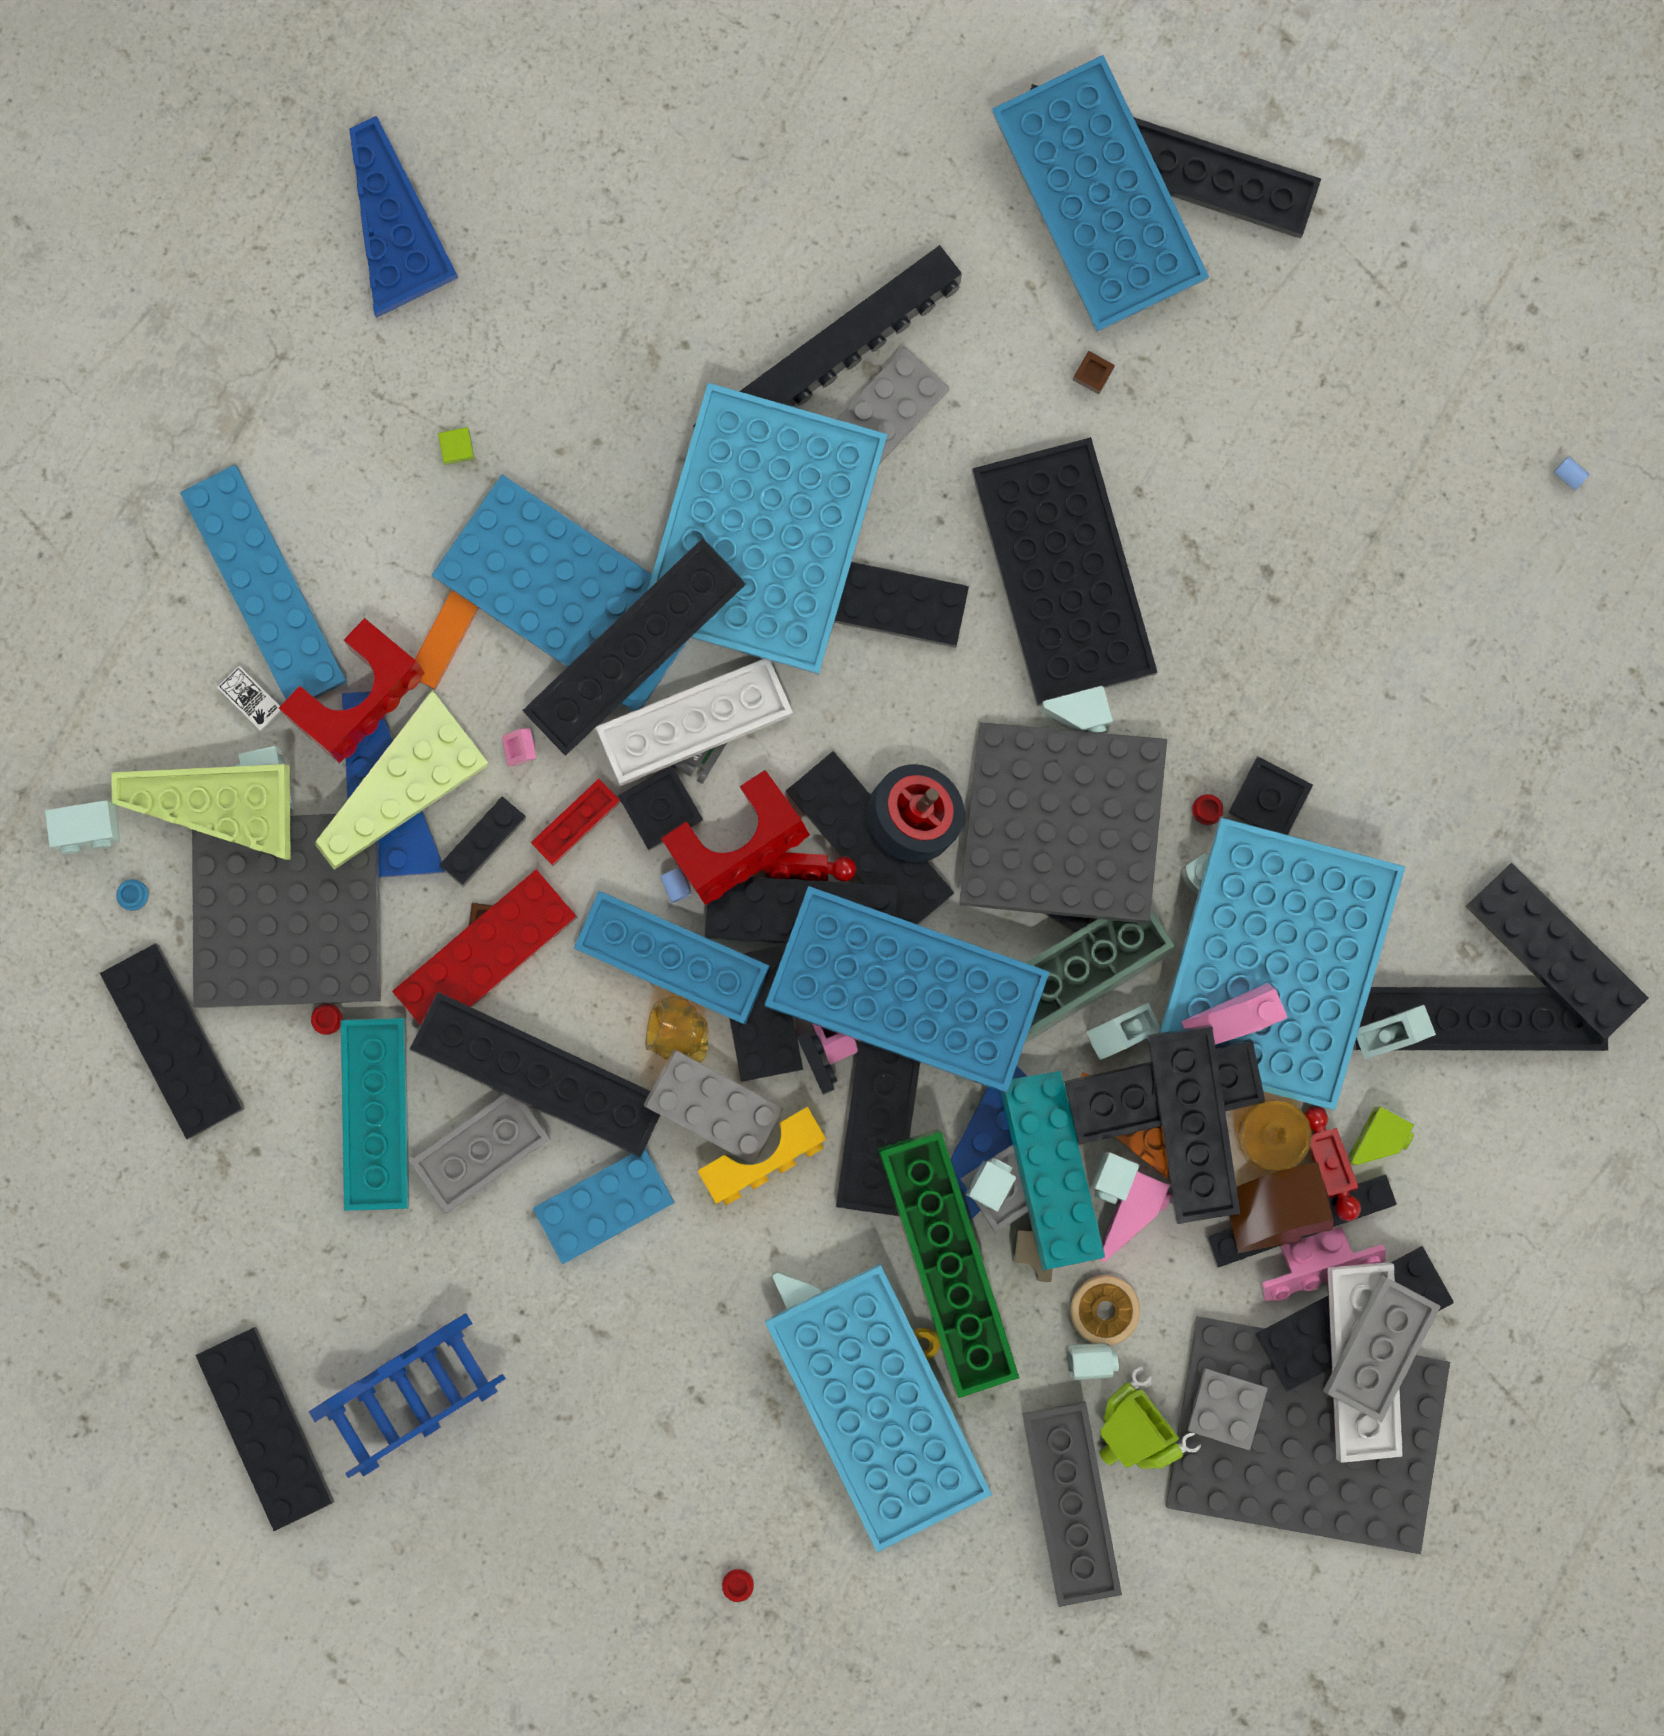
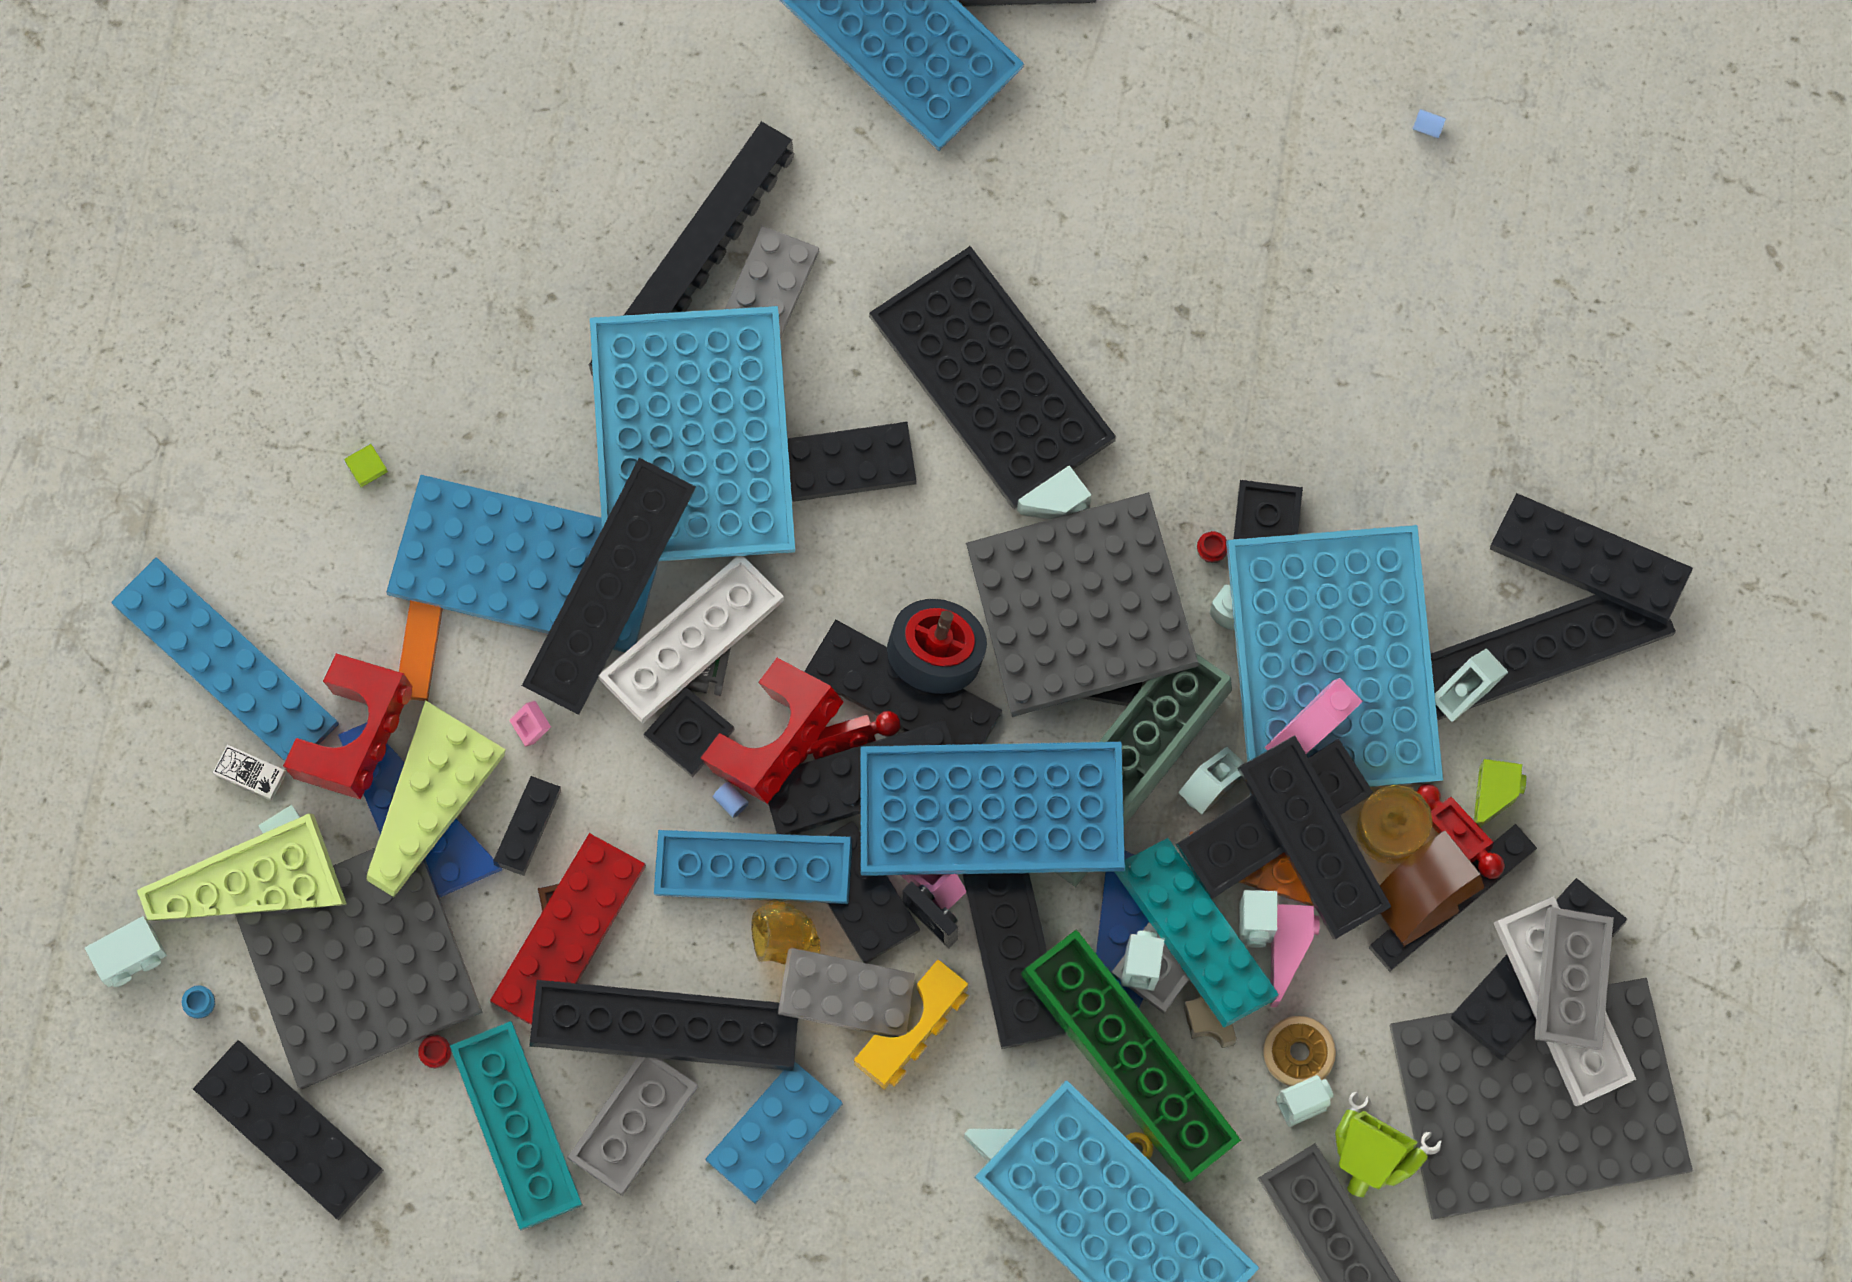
camera: 20 degrees left, 10 degrees down
(398, 236) = (242, 293): blue wing -> none
(575, 822) = (611, 774): red plate -> none
(1093, 372) = (950, 187): reddish brown plate -> none
(1226, 1409) = (1452, 1098): light grey plate -> none
(1310, 1261) = (1476, 934): bright pink bracket -> none

